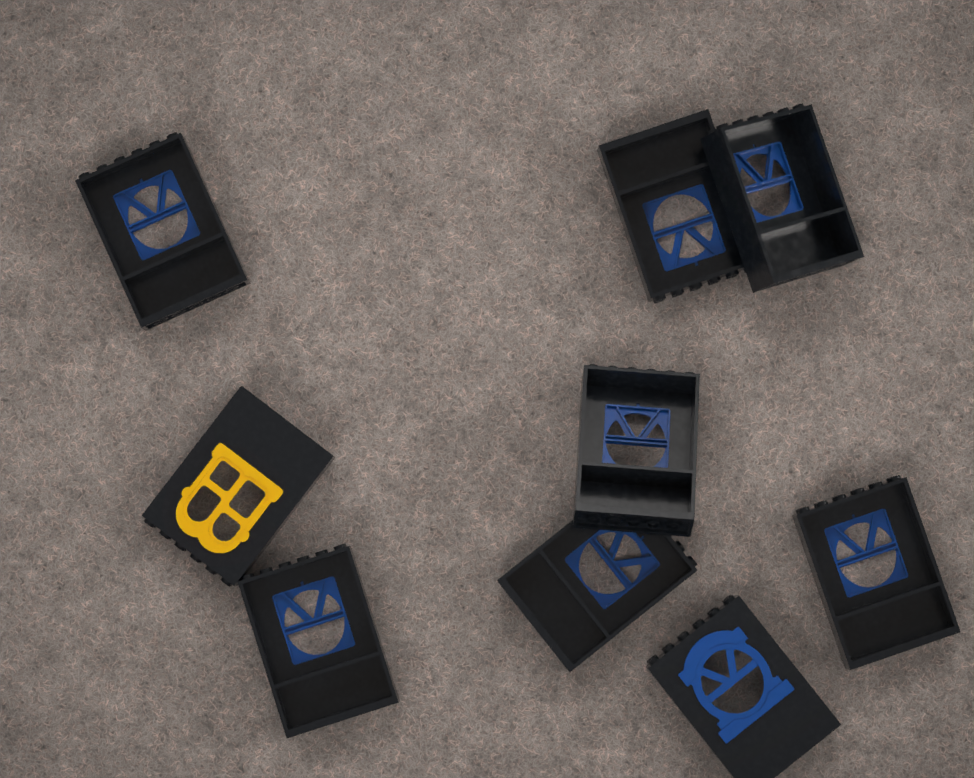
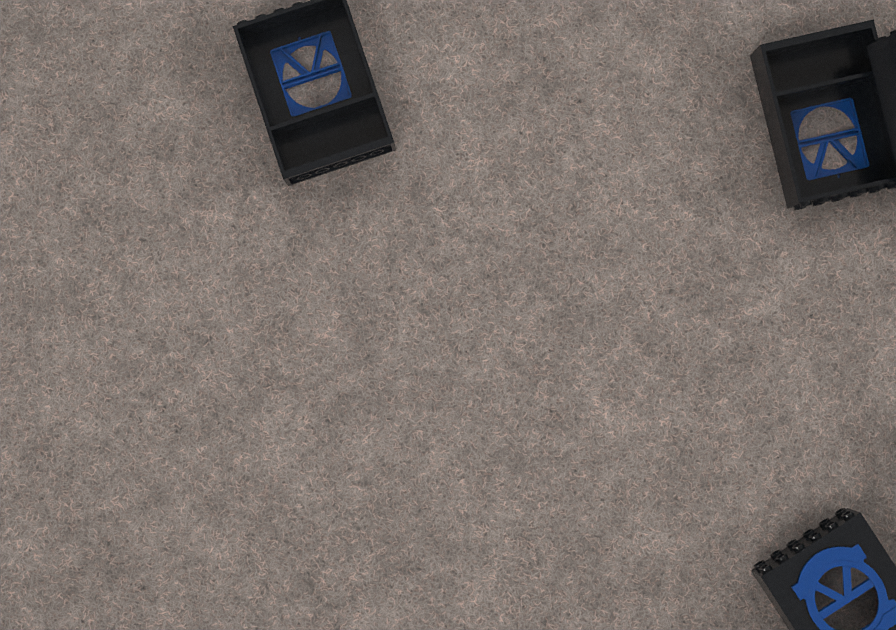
camera: 10 degrees right, 0 degrees up
(262, 450) = (394, 317): black panel -> none
(327, 686) = (439, 558): black panel -> none
(571, 614) = (687, 516): black panel -> none
(636, 496) = (765, 402): black panel -> none

